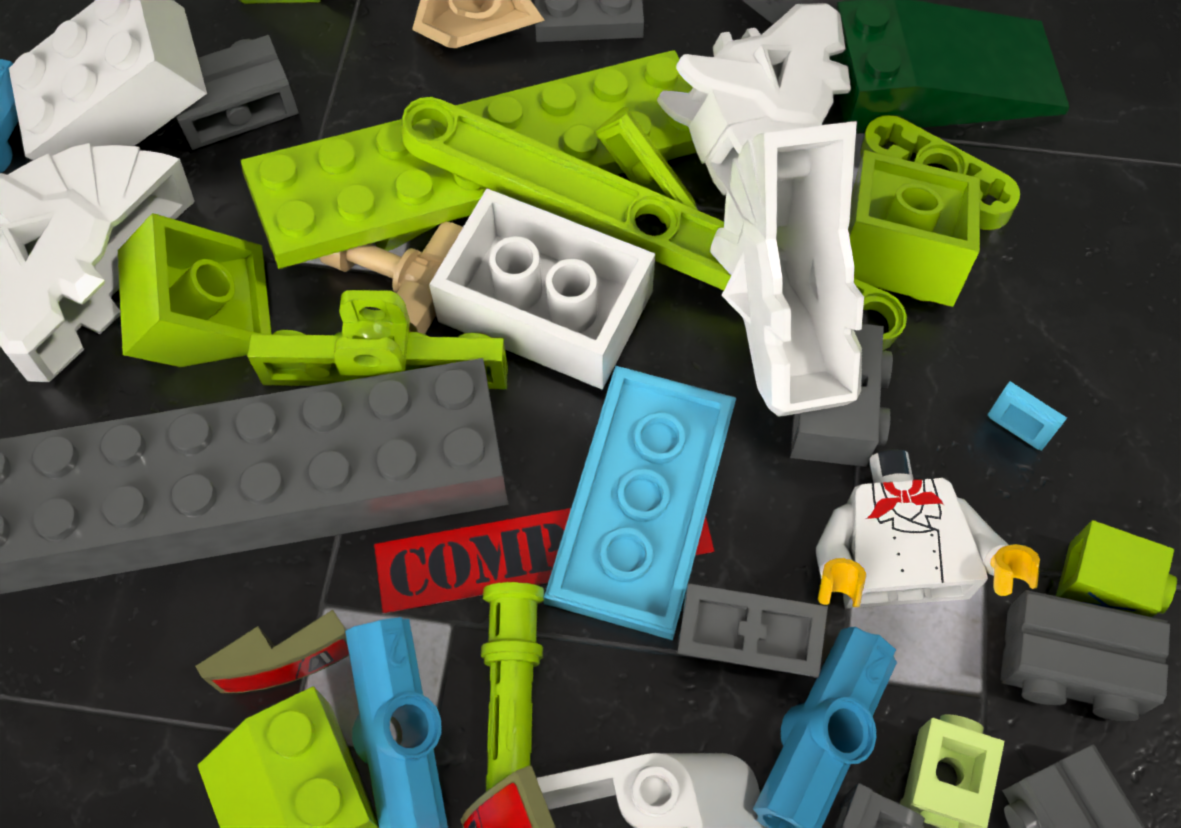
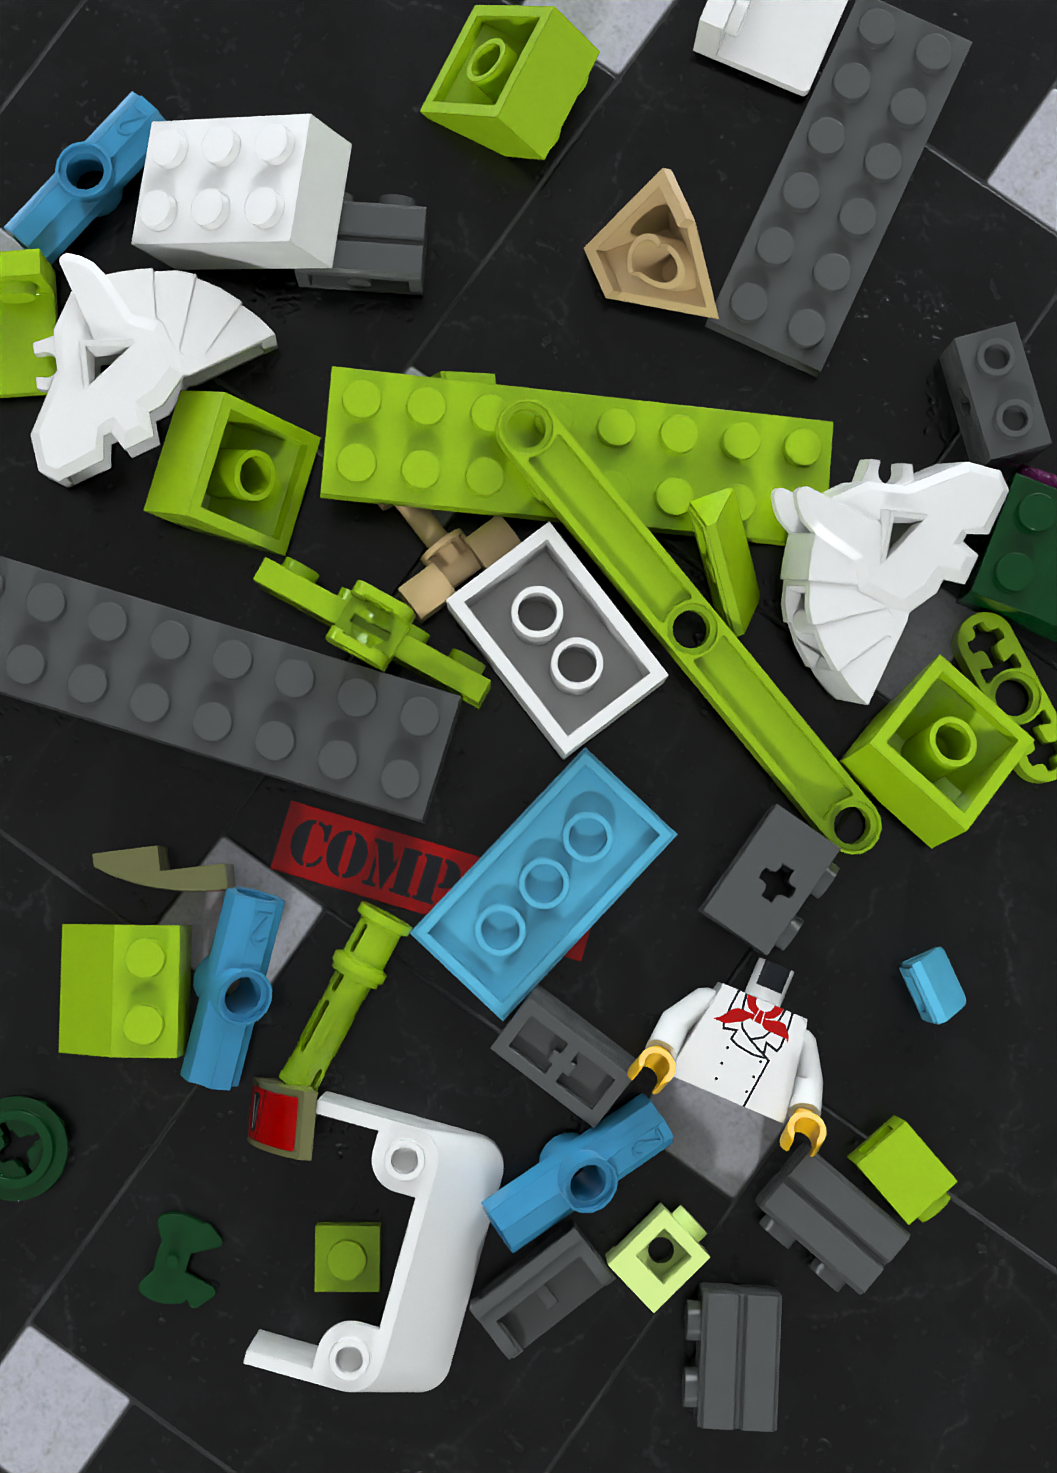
camera: 20 degrees right, 20 degrees up
(795, 265) = (766, 785): white animal -> none

